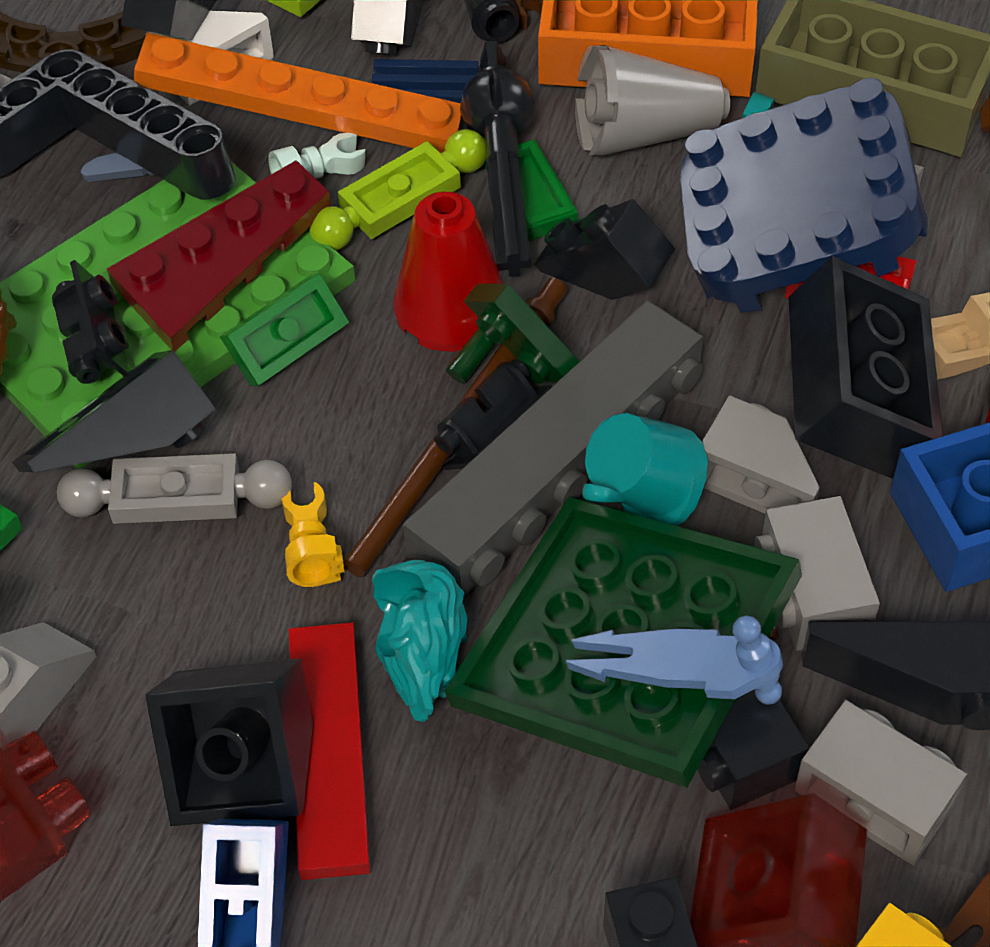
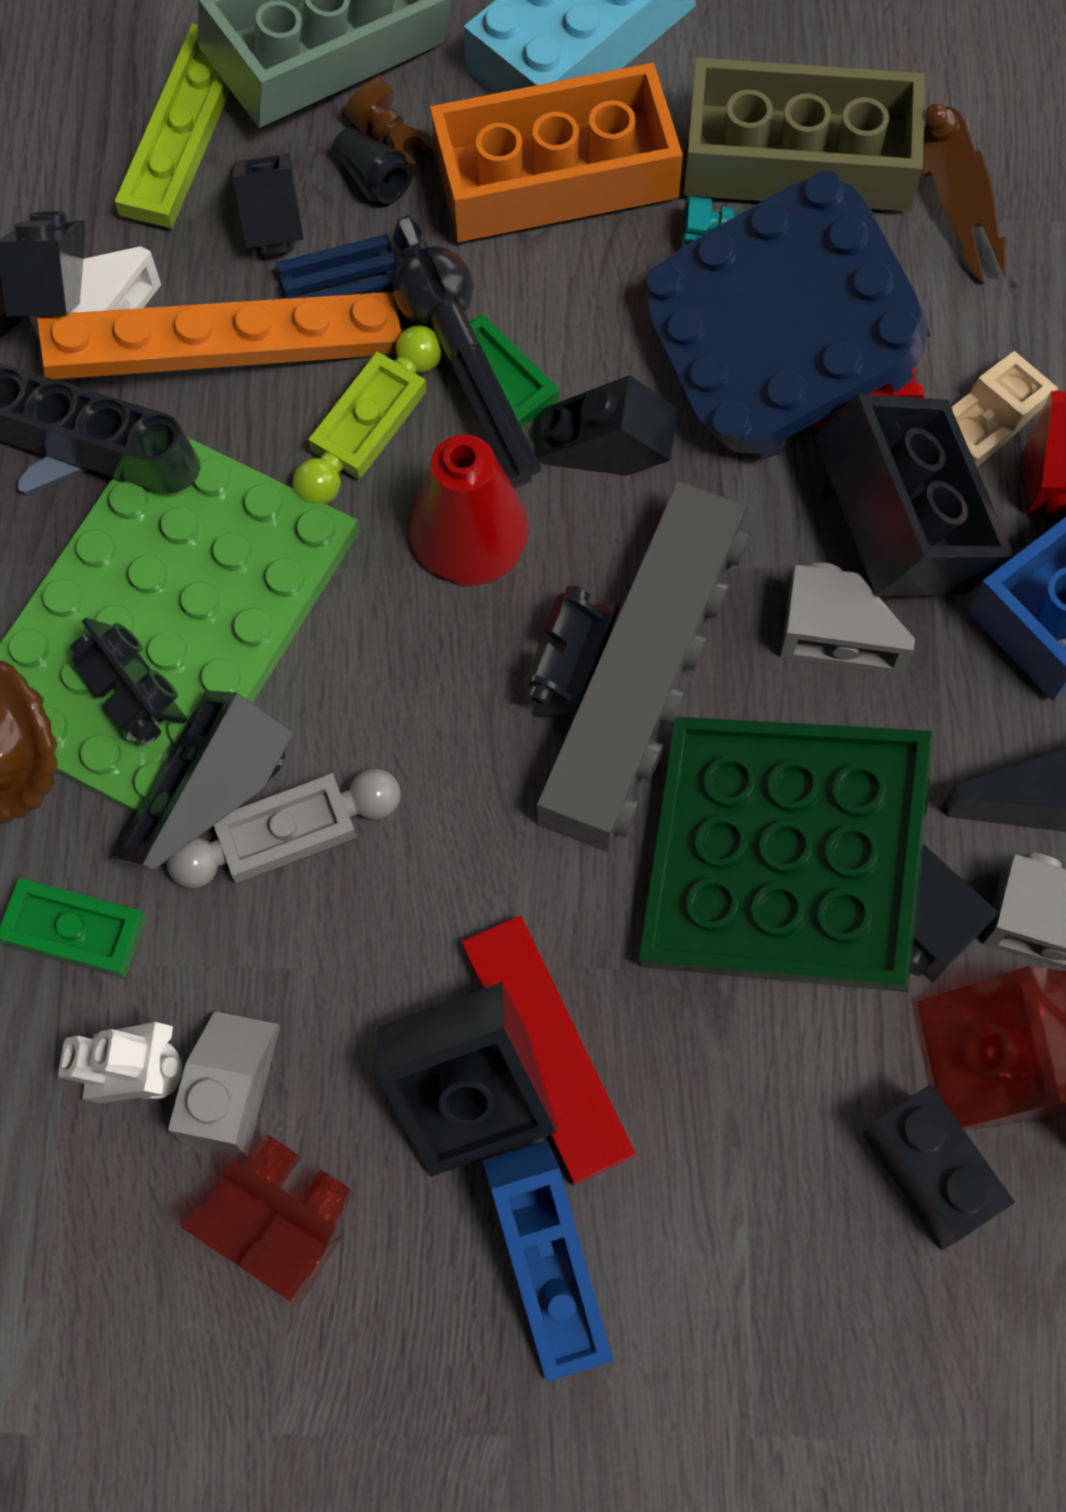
camera: 20 degrees left, 15 degrees up
(202, 261) = (206, 569): dark red wing -> none
(284, 329) = (320, 616): green plate -> none
(312, 554) = (450, 856): yellow piece -> none
(335, 156) = (244, 422): light aqua piece -> none
(419, 630) = (592, 907): teal hair -> none
(432, 458) = (562, 520): reddish brown bar -> none
(509, 321) = (559, 553): dark green plate -> none
(643, 101) = (579, 243): light grey cone -> none
(646, 467) = (747, 670): teal hat -> none
(690, 659) = (868, 870): medium blue piece -> none
(834, 573) = (935, 697): light grey brick -> none

